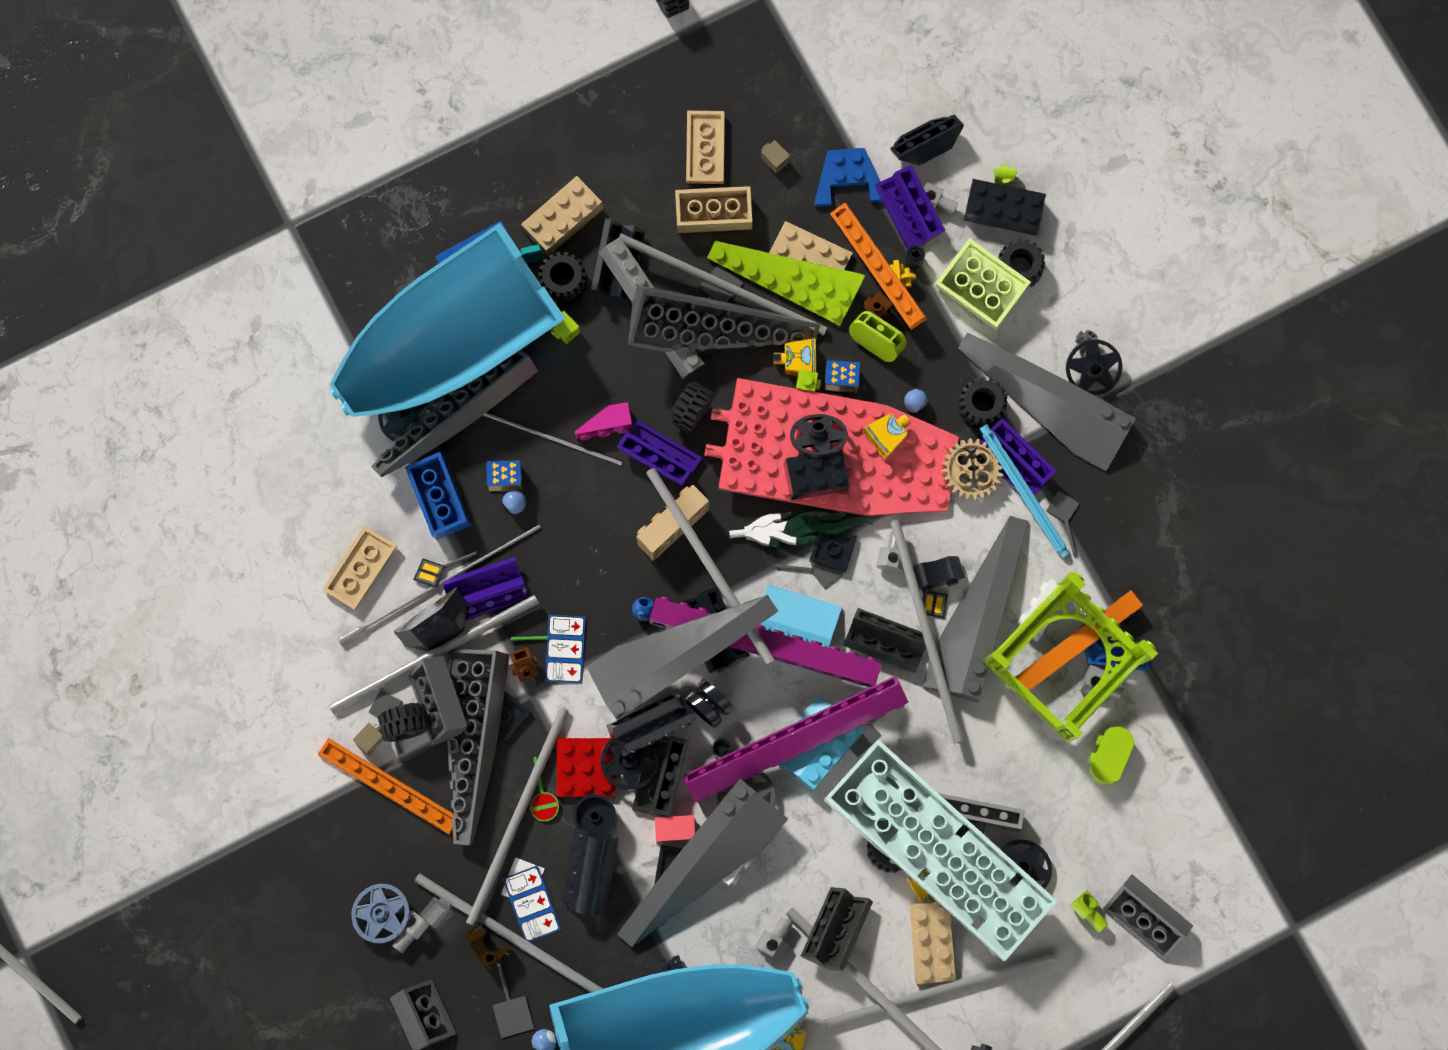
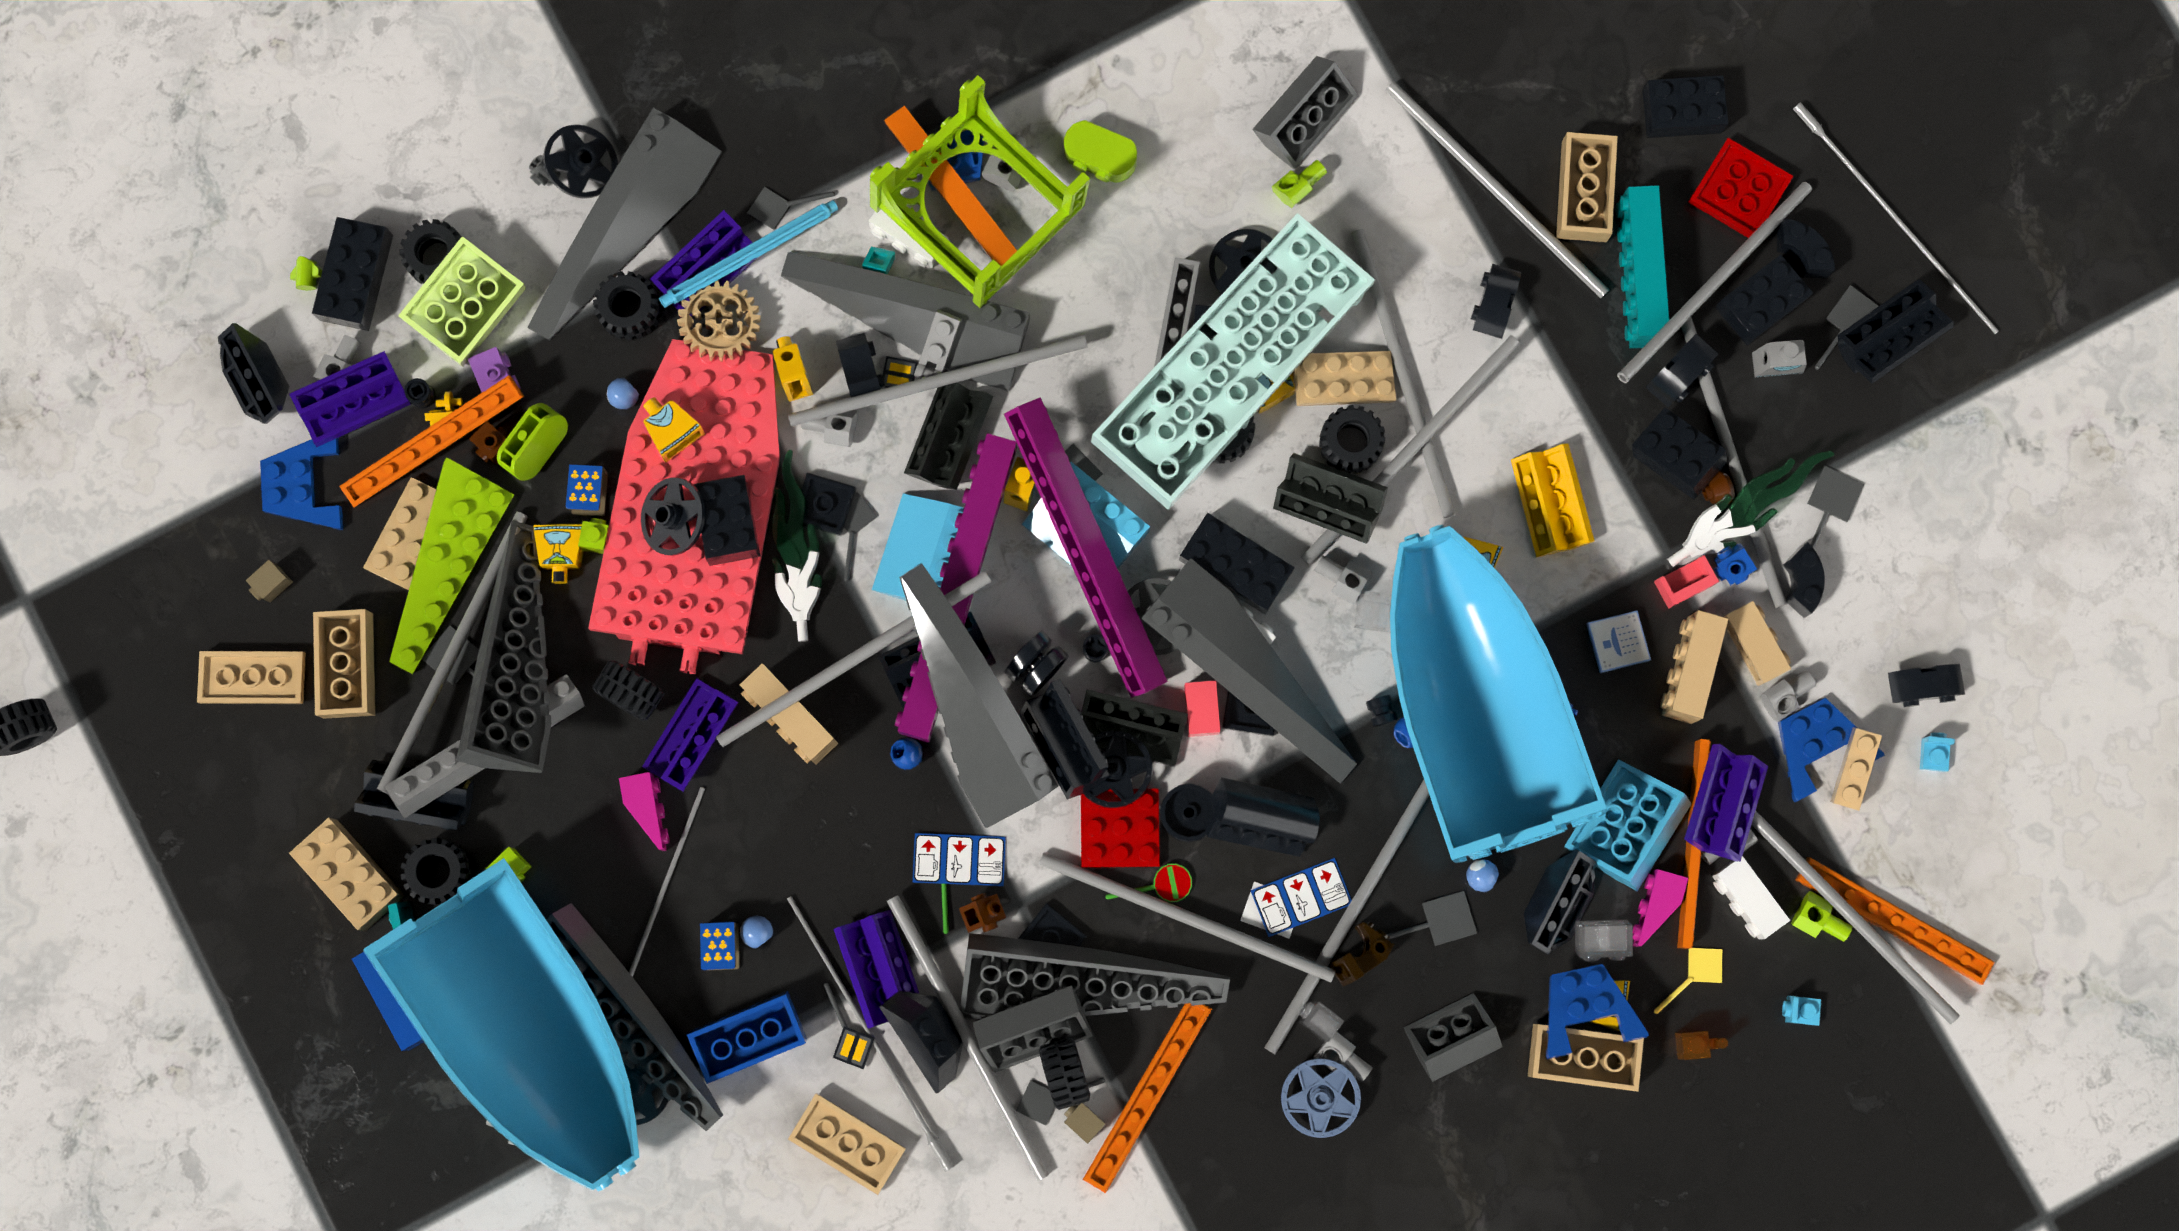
camera: 90 degrees left, 5 degrees up
(786, 856) = (1237, 563): none -> black brick
(843, 690) = (1021, 485): none -> yellow torso
(898, 938) = (1366, 424): none -> black tyre
(933, 307) = (490, 368): none -> medium lavender brick
(934, 523) = (791, 369): none -> yellow torso
(955, 631) = (938, 344): none -> light grey plate
(1021, 587) = (879, 260): none -> teal plate

